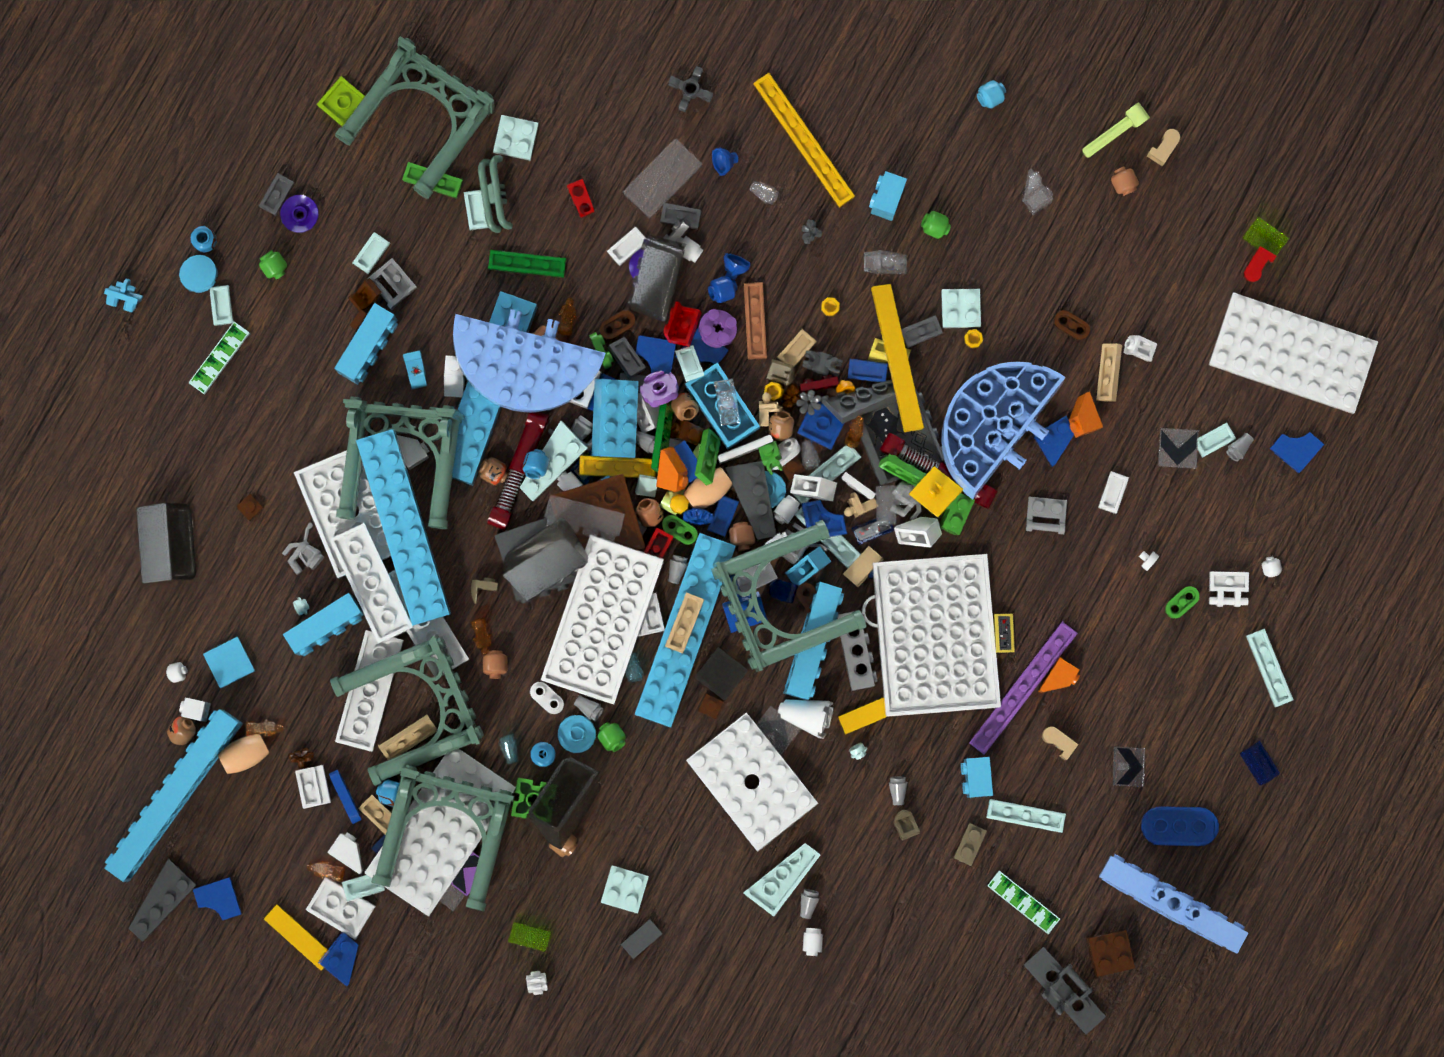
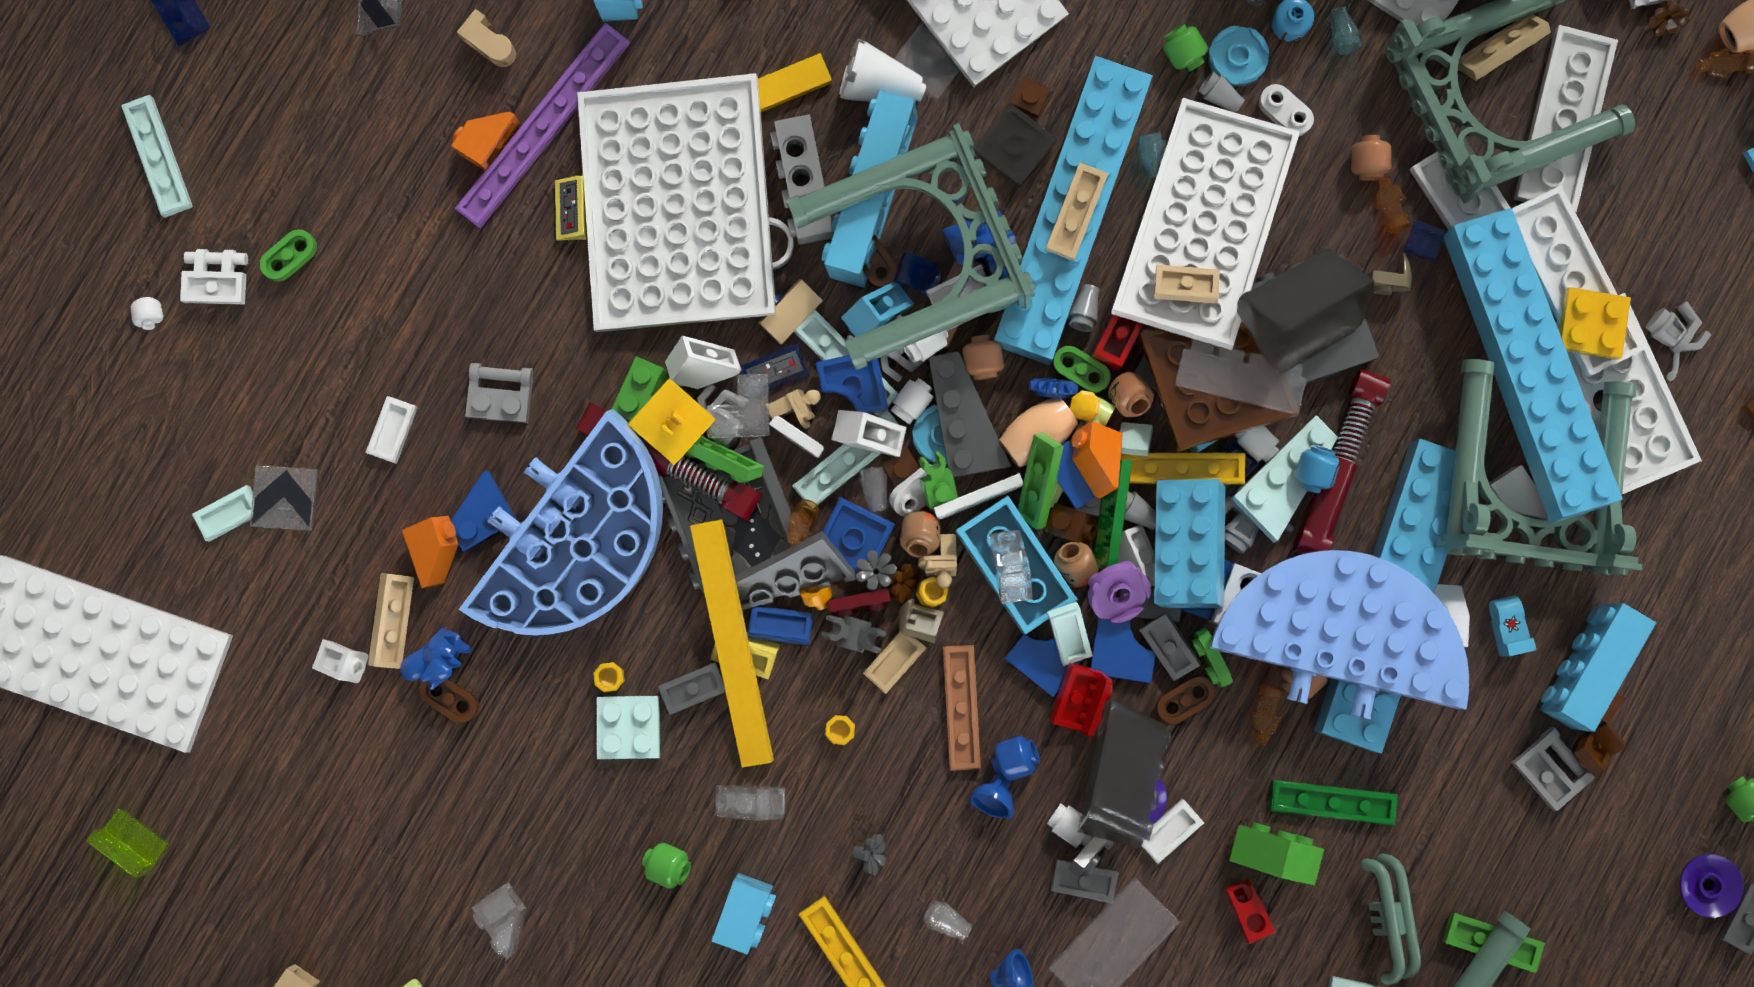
camera: 175 degrees left, 0 degrees up
(301, 606) = (1678, 250): light aqua plate -> none
(324, 624) = (1650, 211): medium azure brick -> none
(362, 554) = (1594, 322): none -> yellow plate
(371, 253) = (1587, 820): light aqua tile -> none
(463, 610) = (1424, 240): none -> clear blue tile
(475, 210) = (1422, 891): light aqua tile -> none
(493, 471) = (1381, 462): medium nougat head -> none
(563, 231) = (1279, 855): none -> bright green brick
(618, 574) = (1186, 284): none -> tan plate
(652, 620) = (1122, 230): white plate -> none
(714, 318) = (1007, 702): medium lavender plate -> none
(723, 516) = (1012, 392): blue tile -> none
(858, 751) = (801, 27): light aqua plate -> none
(1079, 350) = (434, 659): none -> blue animal
(1124, 181) = (353, 938): nougat head -> none
(1148, 560) = (337, 320): white tile -> none
(1239, 448) = (186, 499): light grey cone -> none
(1254, 268) = (142, 801): red leg -> none
(1297, 451) = (96, 494): blue tile -> none

